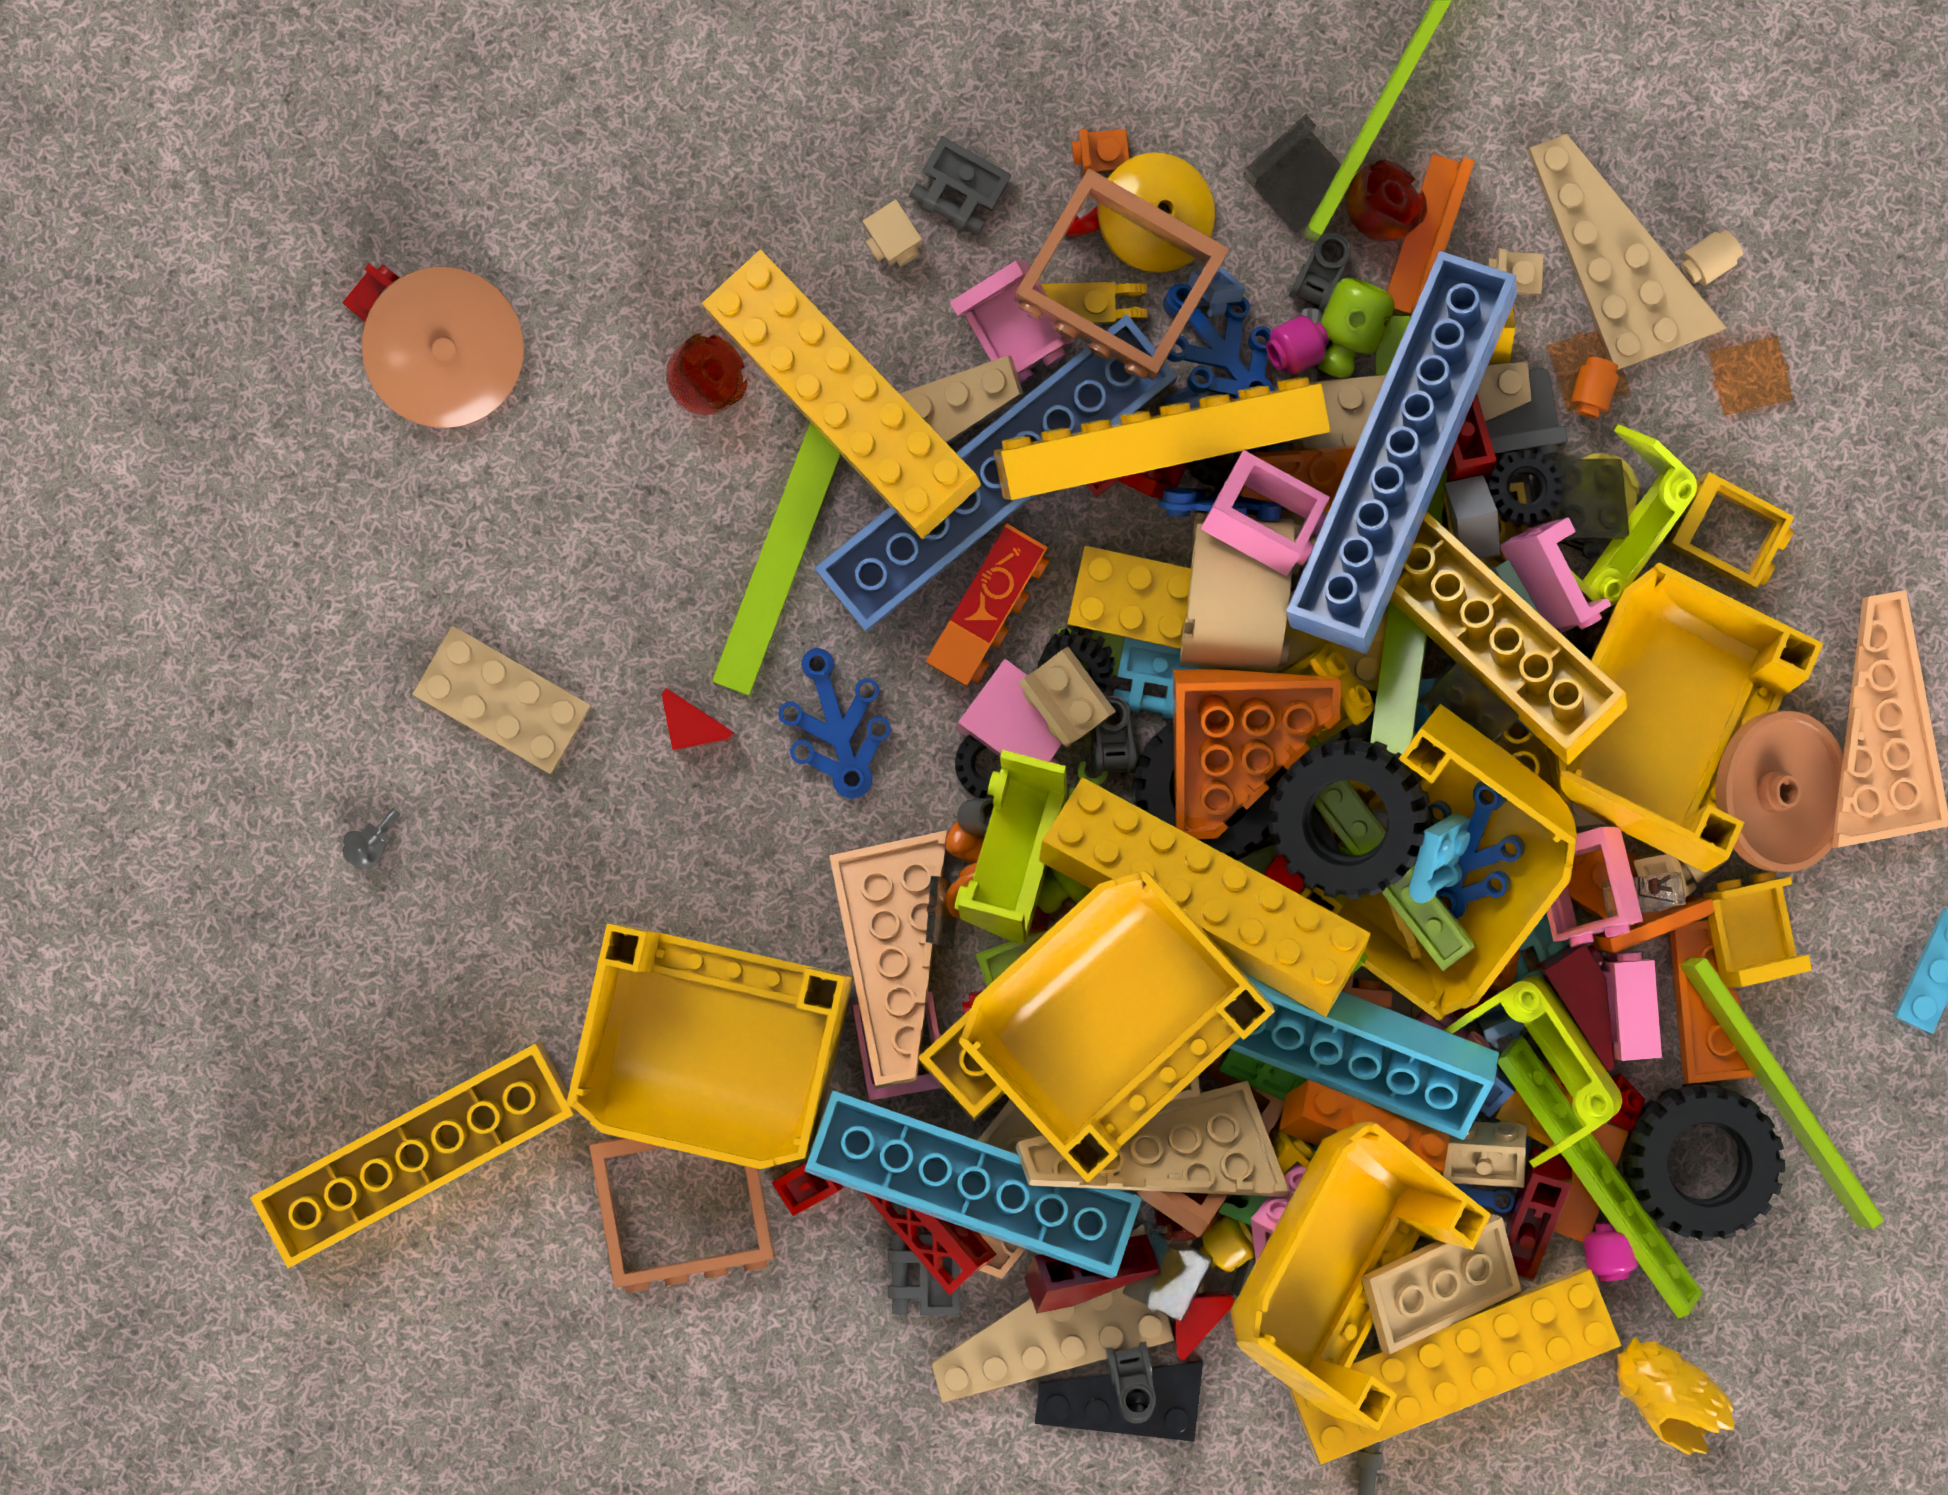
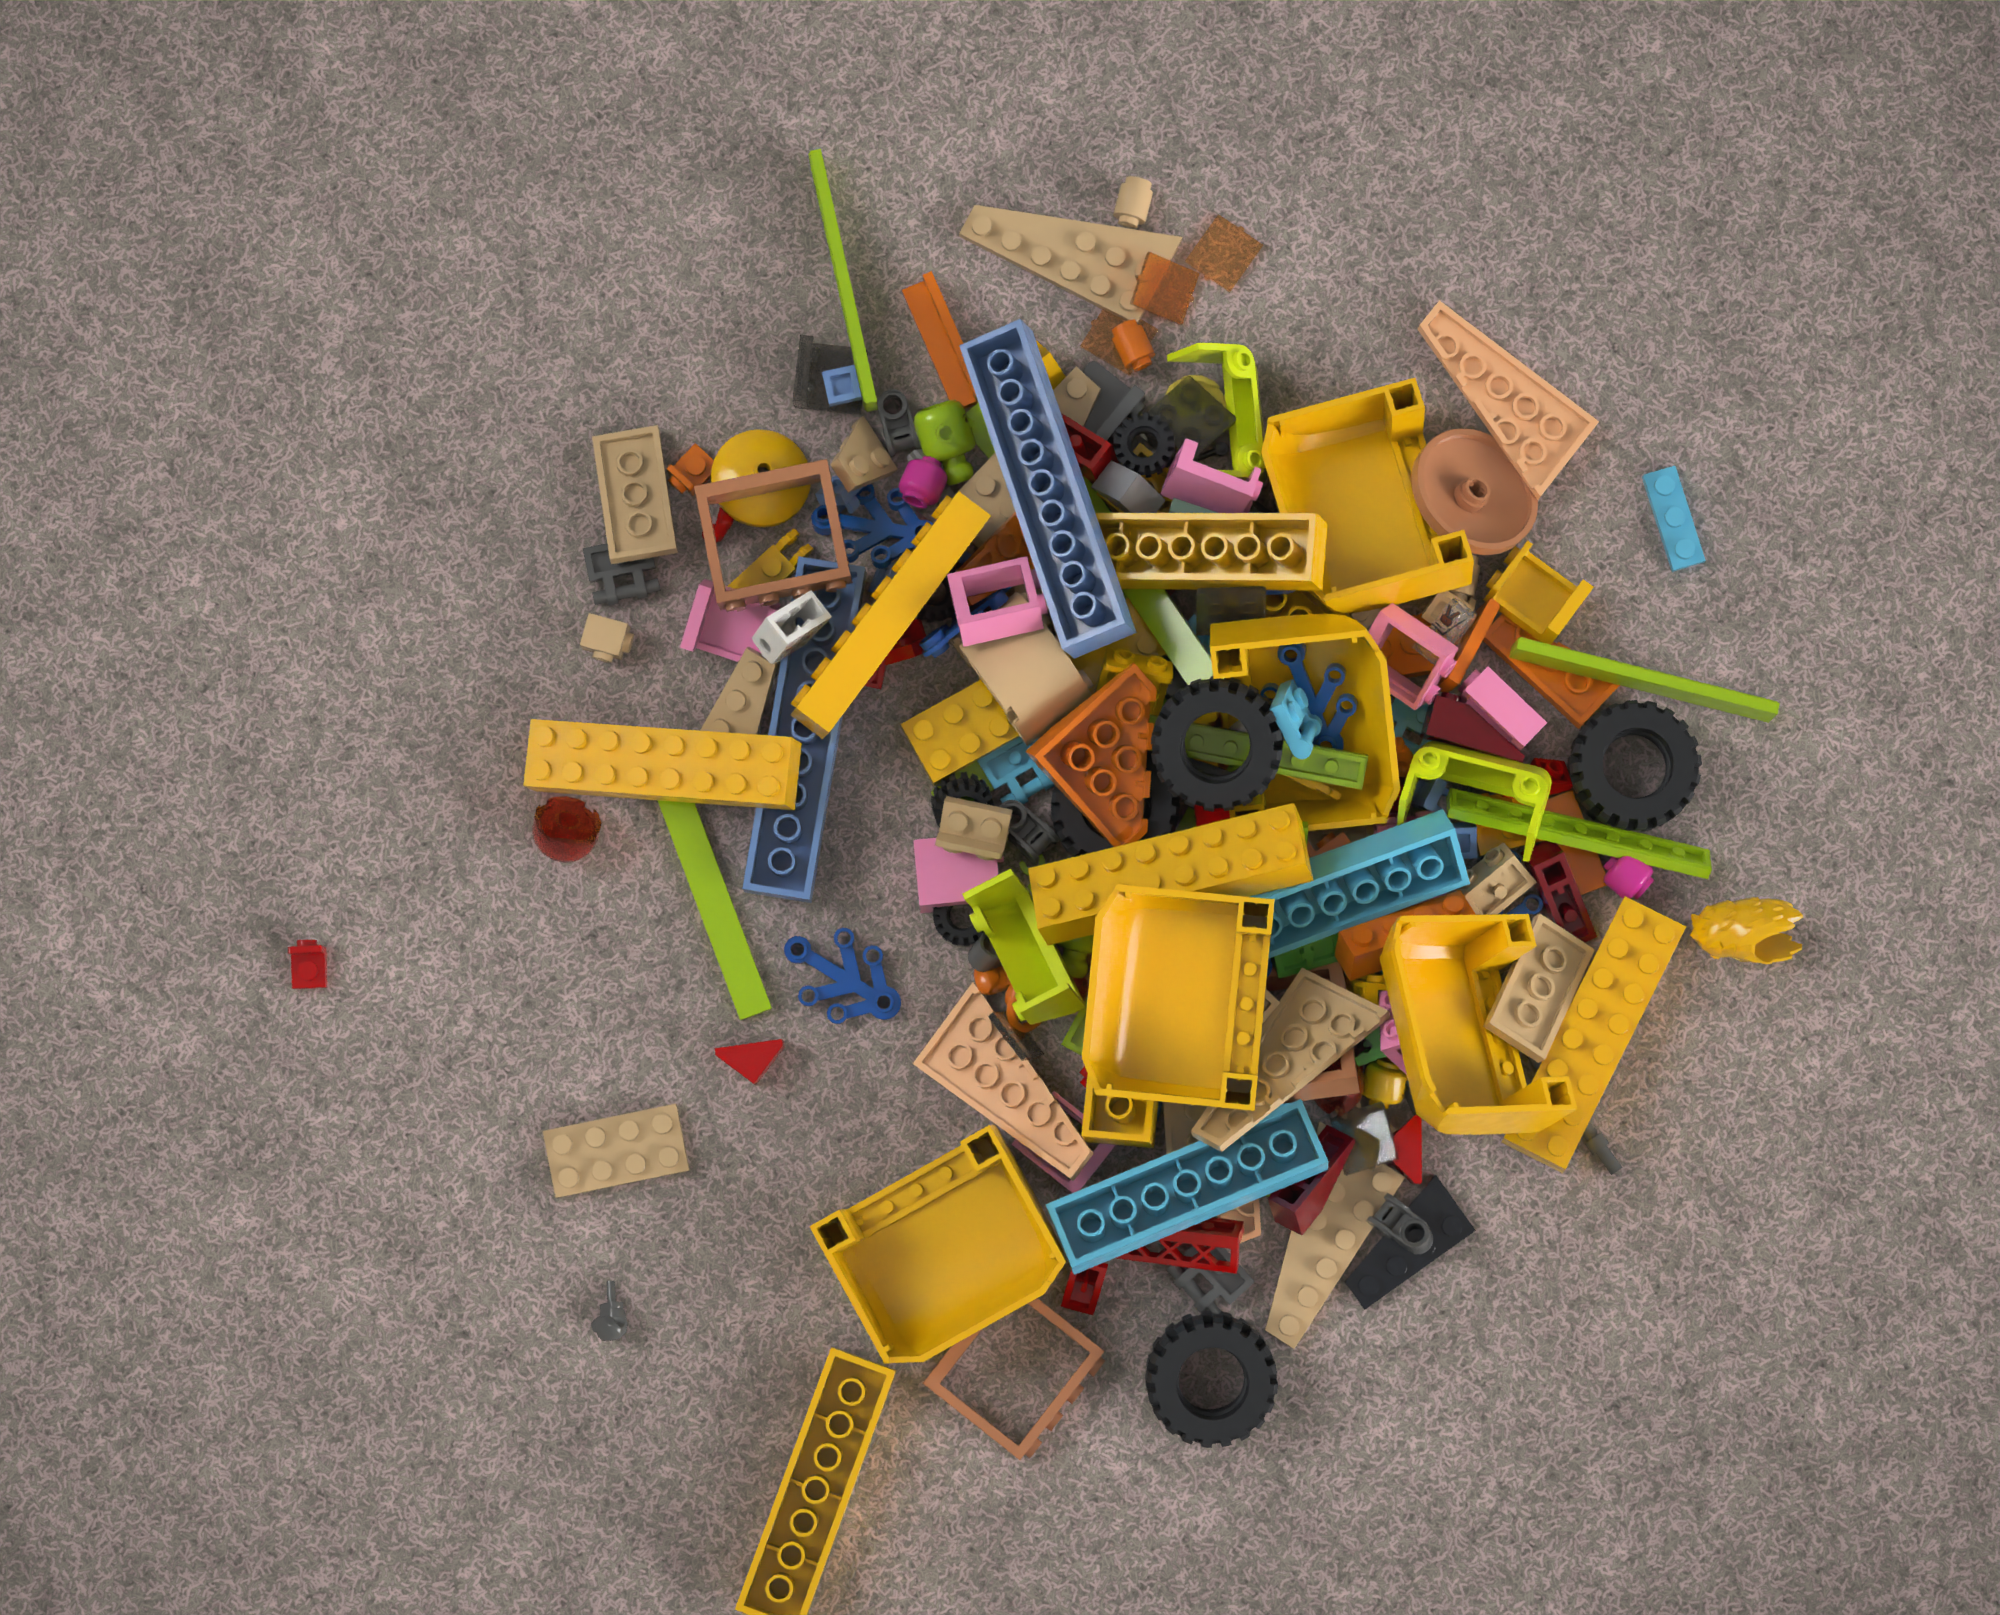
camera: 35 degrees left, 5 degrees down
(442, 346) = (381, 959): nougat dish -> none
(836, 1417) = (1218, 1424): none -> black tyre
(986, 606) = (872, 817): brick -> none
(1030, 128) = (634, 494): none -> tan plate
(1047, 369) = (780, 636): none -> white torso
(1262, 275) = (862, 458): none -> tan wing
(1302, 193) = (842, 385): none -> medium blue tile
(1385, 202) = (898, 346): clear red cylinder -> none
(1526, 267) = (1024, 309): tan bracket -> none
(1669, 360) = (1164, 288): none -> clear orange piece
(1689, 521) = (1266, 377): yellow window -> none

